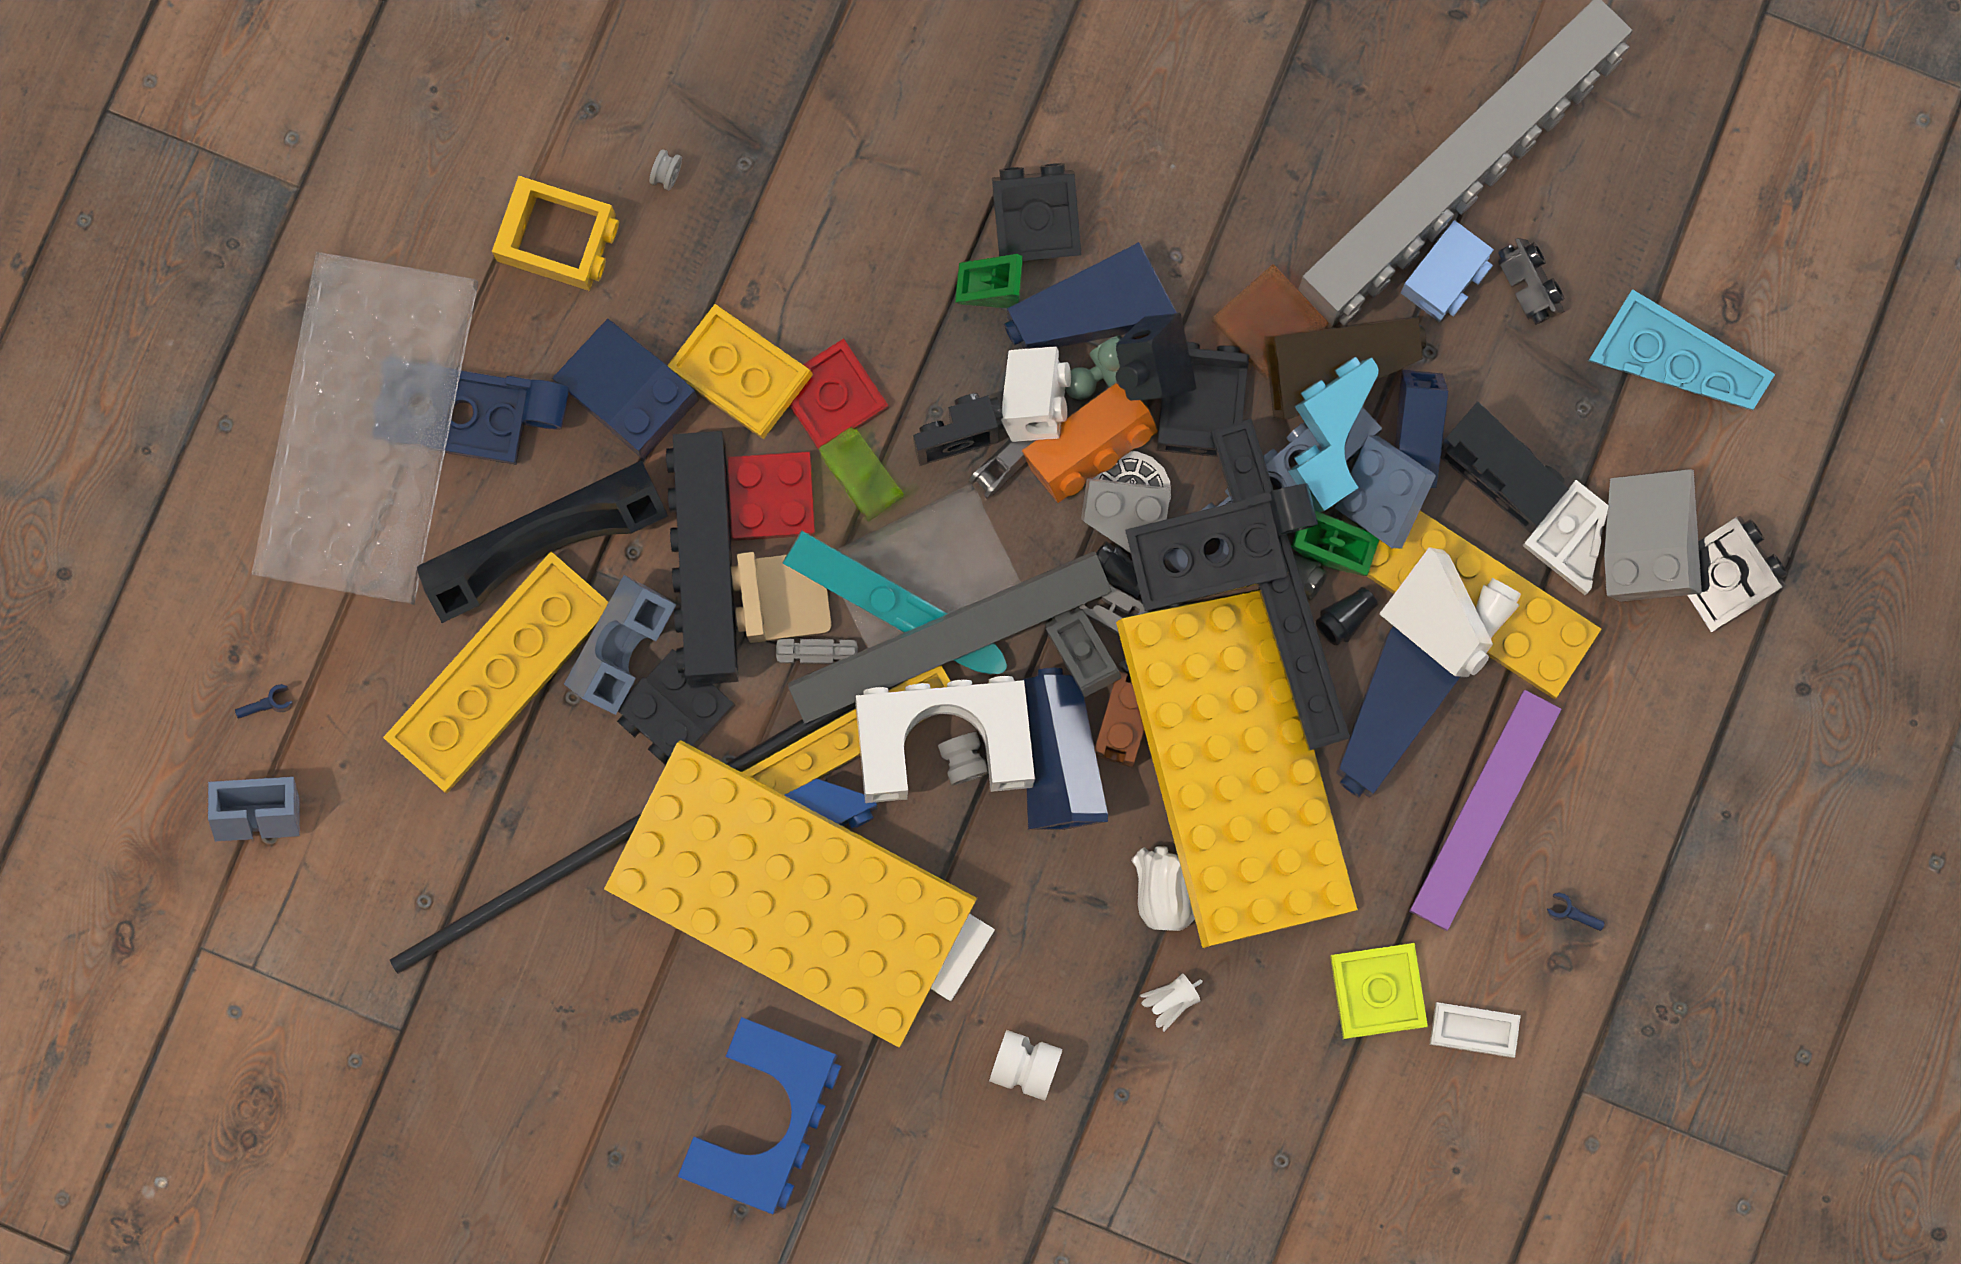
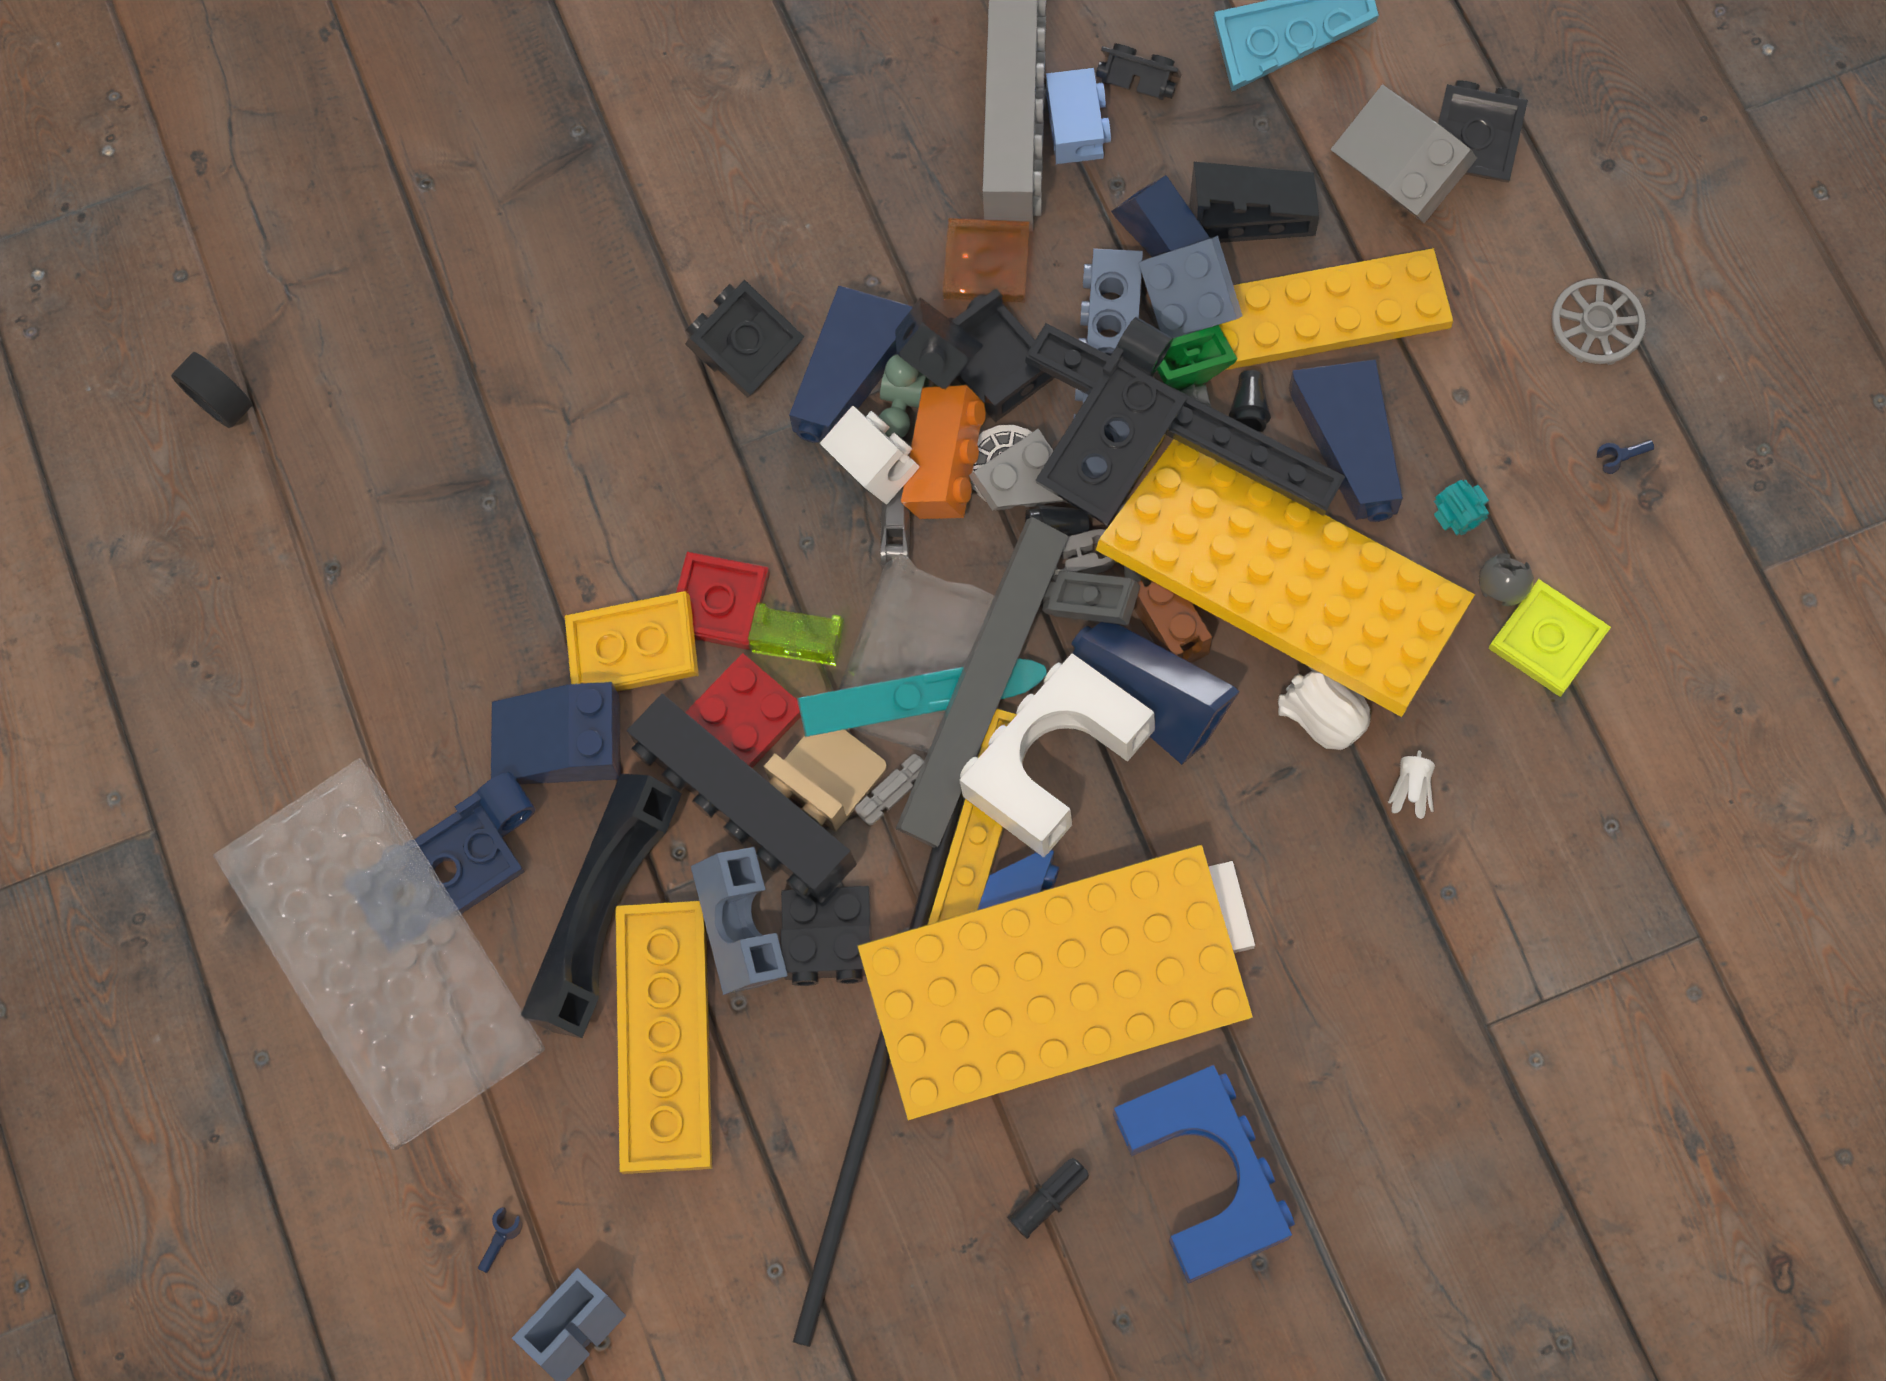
camera: 40 degrees left, 10 degrees down
(515, 222) = (407, 706): yellow window -> none
(645, 1031) = (1048, 1197): none -> black axle
(665, 169) = (433, 555): light grey bush -> none
(963, 757) = (1085, 761): light grey wheel -> none
(971, 427) = (845, 521): black plate -> none
(990, 282) = (758, 412): green slope -> none
(1025, 1065) = (1362, 934): white wheel -> none
(1309, 356) = (1058, 243): dark brown slope -> none
(1330, 415) = (1102, 271): medium azure arch -> none
(1387, 921) = (1506, 579): none -> dark grey piece
(1412, 839) = (1461, 507): none -> teal gear
(1440, 615) = (1319, 333): white slope -> none
(1475, 1030) = (1644, 599): white tile -> none
(1485, 810) = (1487, 444): medium lavender tile -> none
(1496, 605) = (1349, 295): white cone -> none
(1571, 536) = (1348, 209): white wing -> none
(1663, 799) = (1598, 322): none -> light grey wheel

